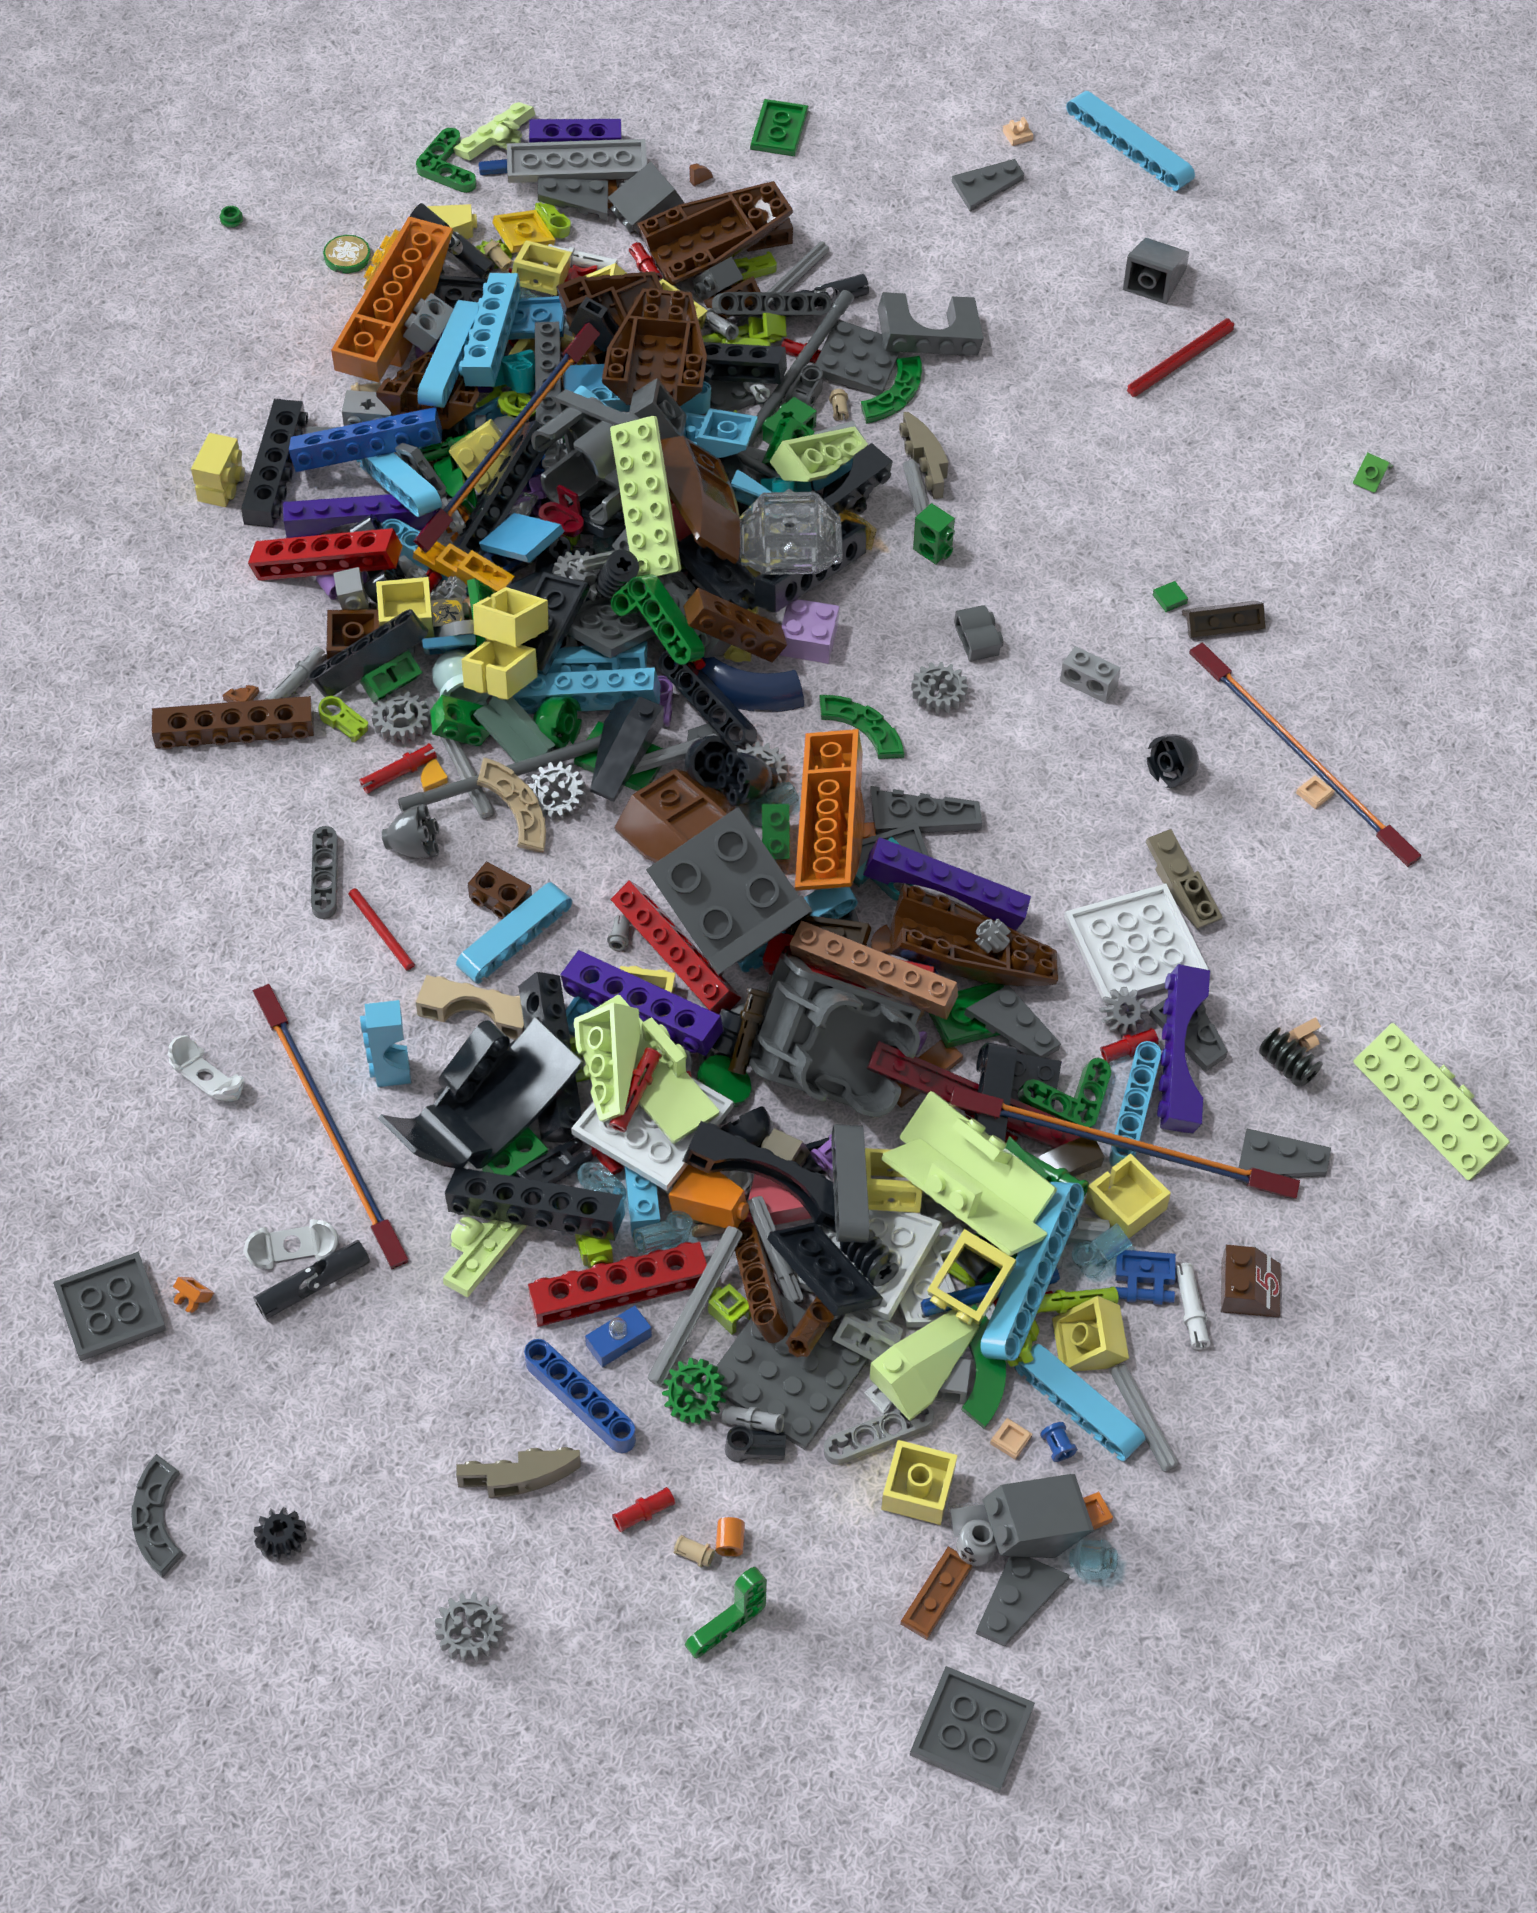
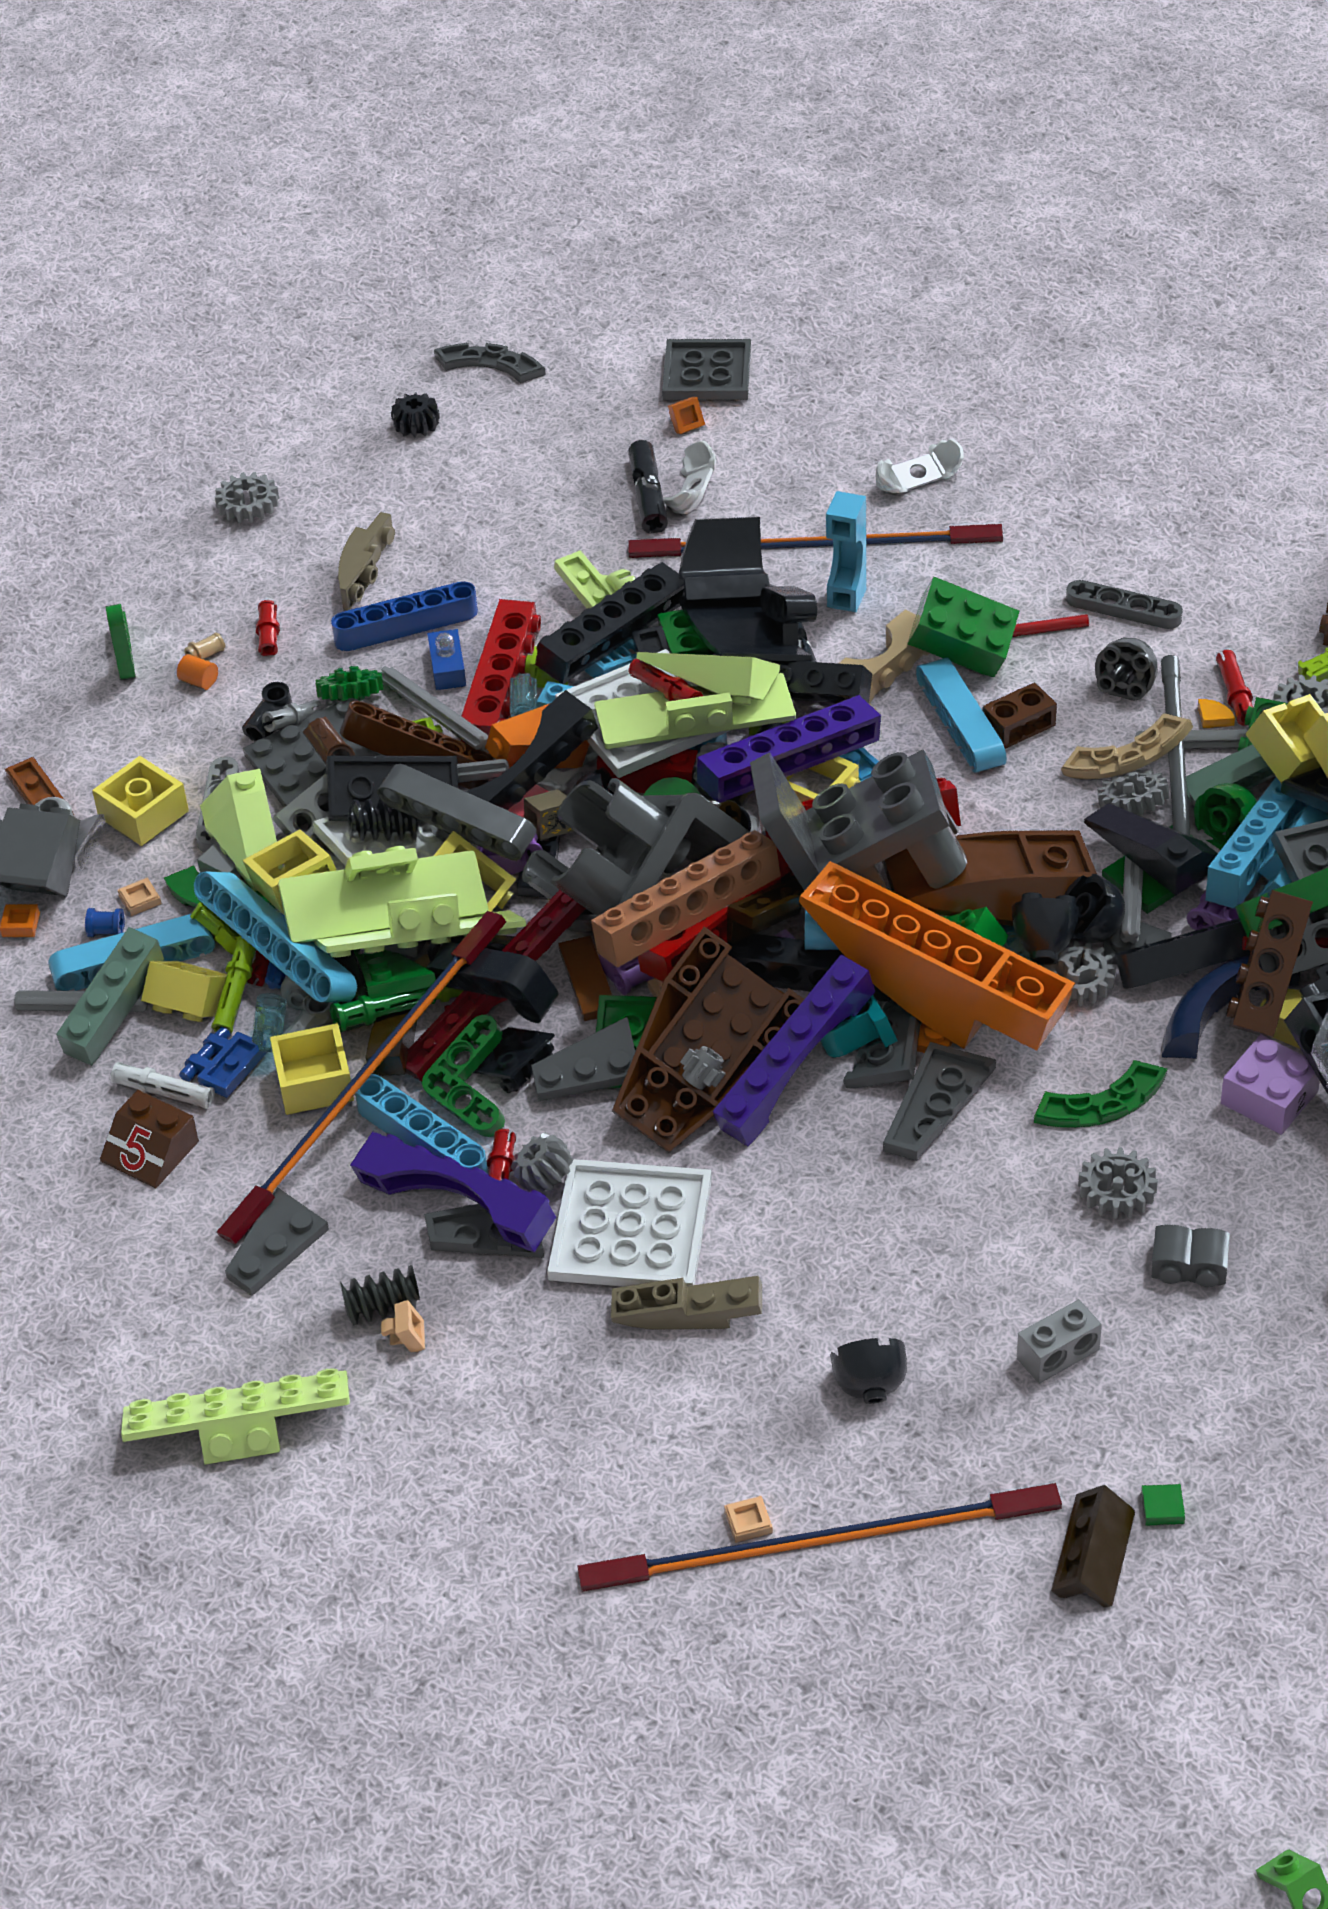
camera: 120 degrees right, 10 degrees down
(428, 947) = (963, 627): none -> green brick
(1145, 1372) = (109, 997): none -> sand green brick

